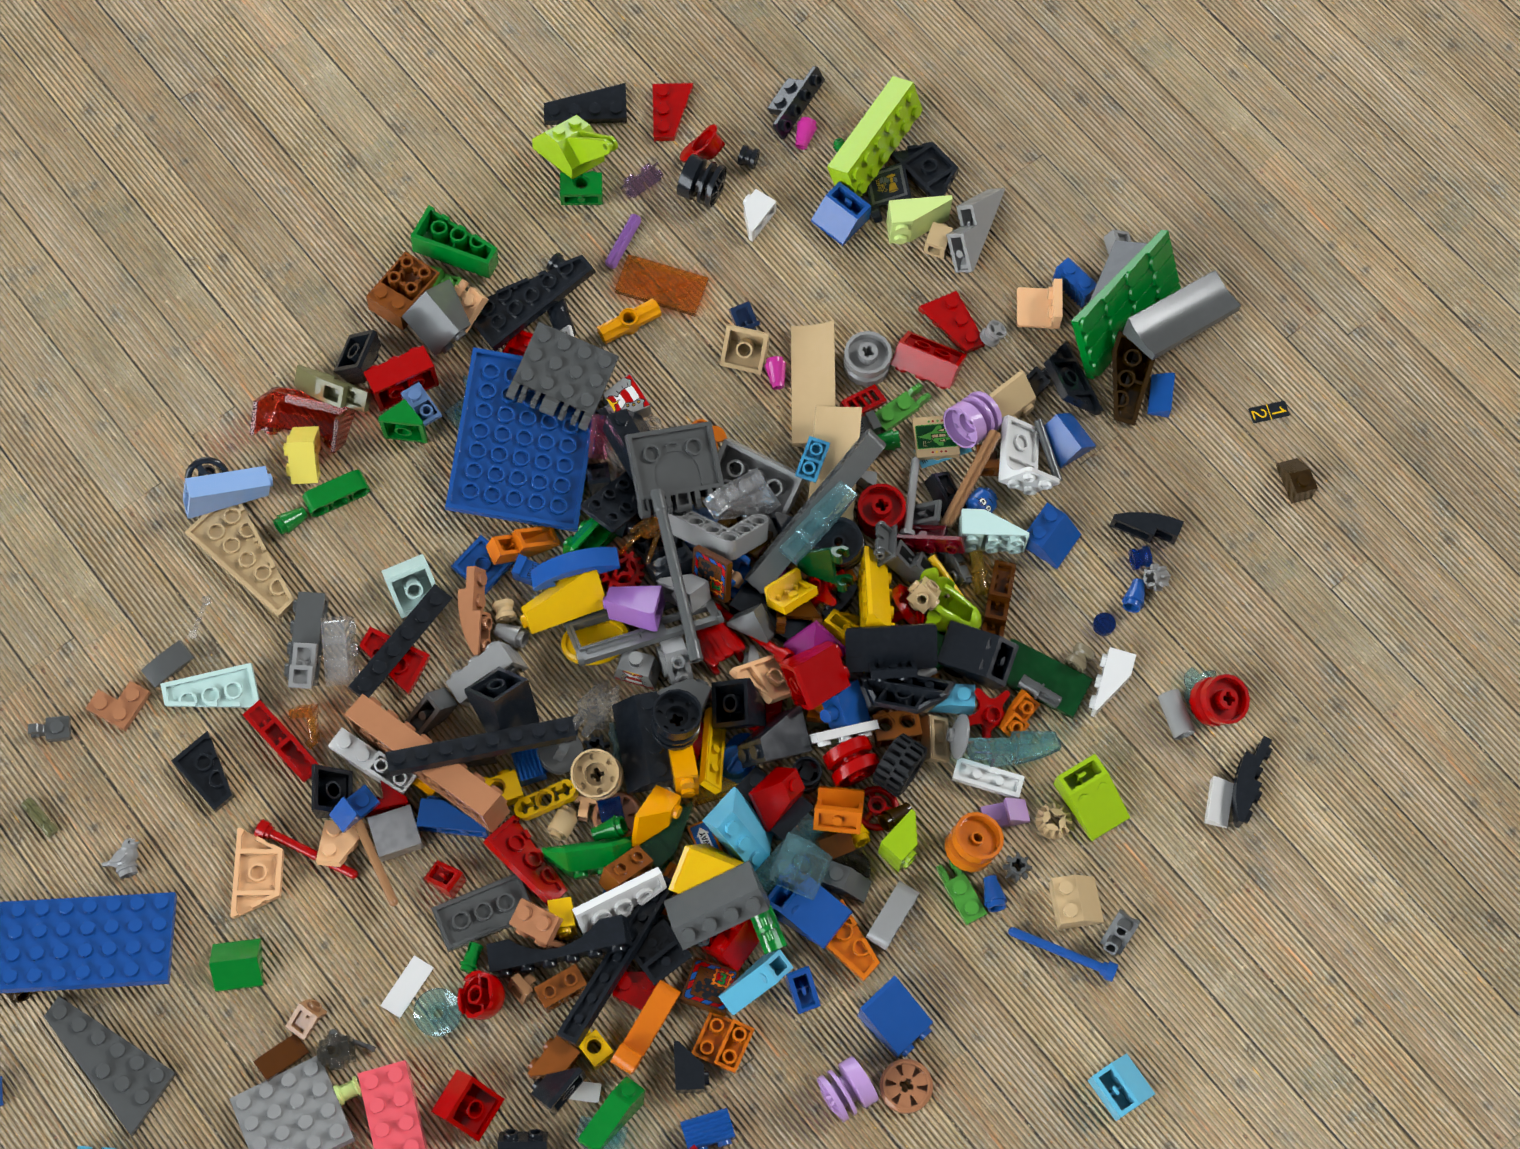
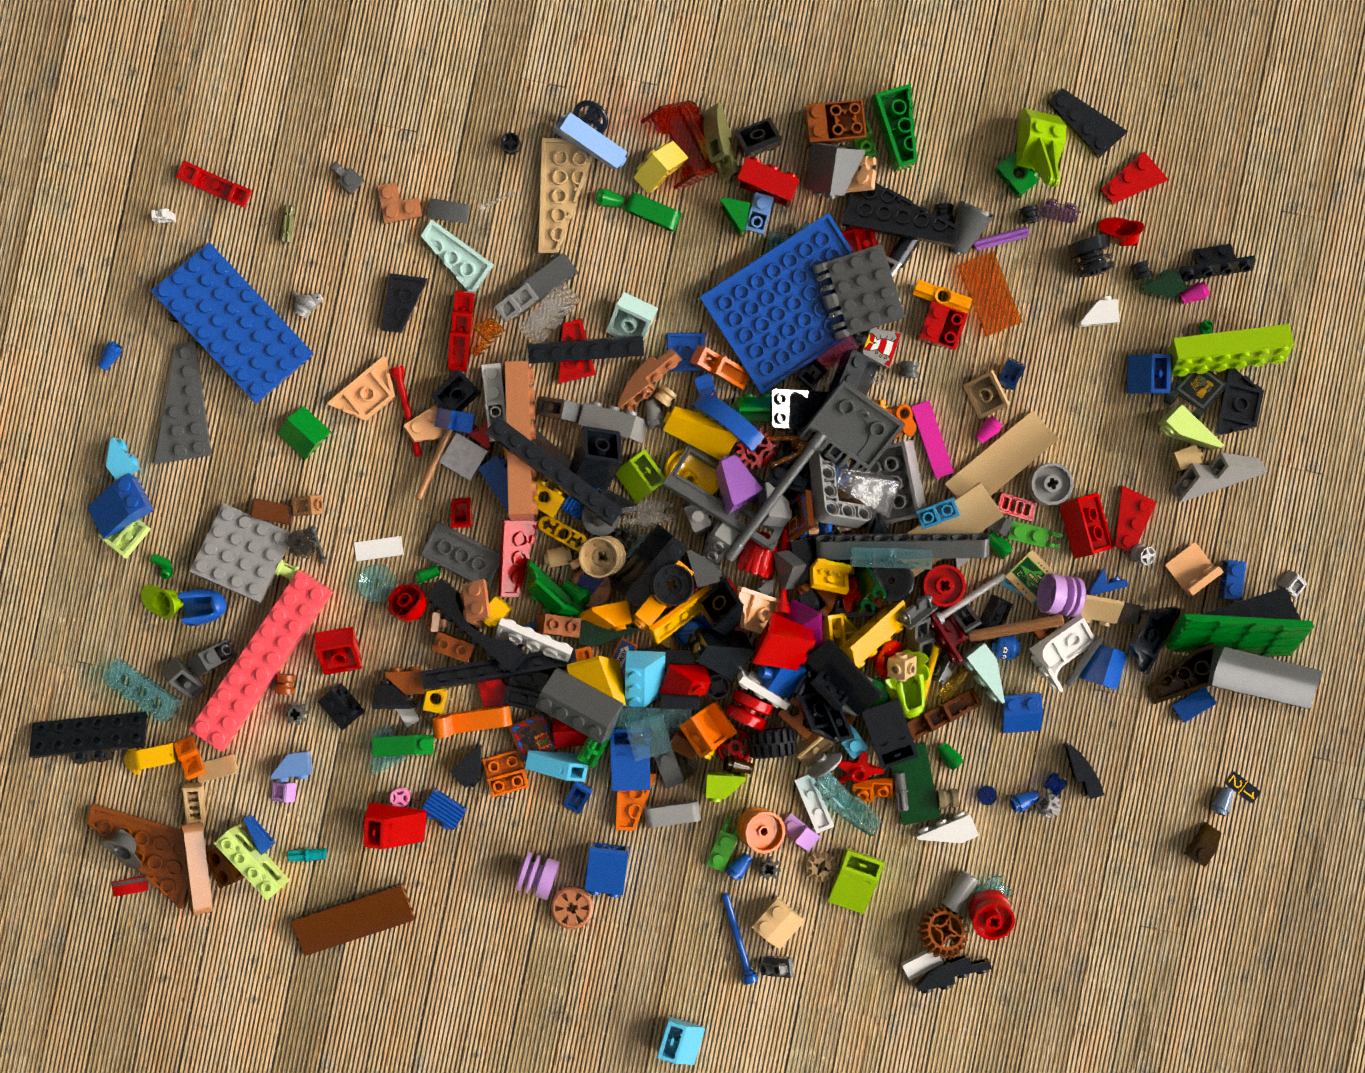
camera: 55 degrees right, 20 degrees up
(160, 558) = (511, 139): none -> black wheel
(556, 687) = (640, 476): none -> lime slope
(589, 243) = (971, 224): none -> dark grey cone
(623, 203) = (1029, 214): none -> black wheel
(653, 339) = (942, 326): none -> red slope
(667, 394) = (909, 369): none -> dark grey wheel
(745, 424) = (932, 439): none -> dark pink tile
(779, 149) = (1165, 287): none -> clear green slope
(990, 383) = (1100, 583): none -> blue slope
(1042, 626) = (950, 756): none -> green cone
(1201, 762) = (956, 934): none -> dark orange gear
(1269, 435) = (1223, 801): none -> sand blue cone

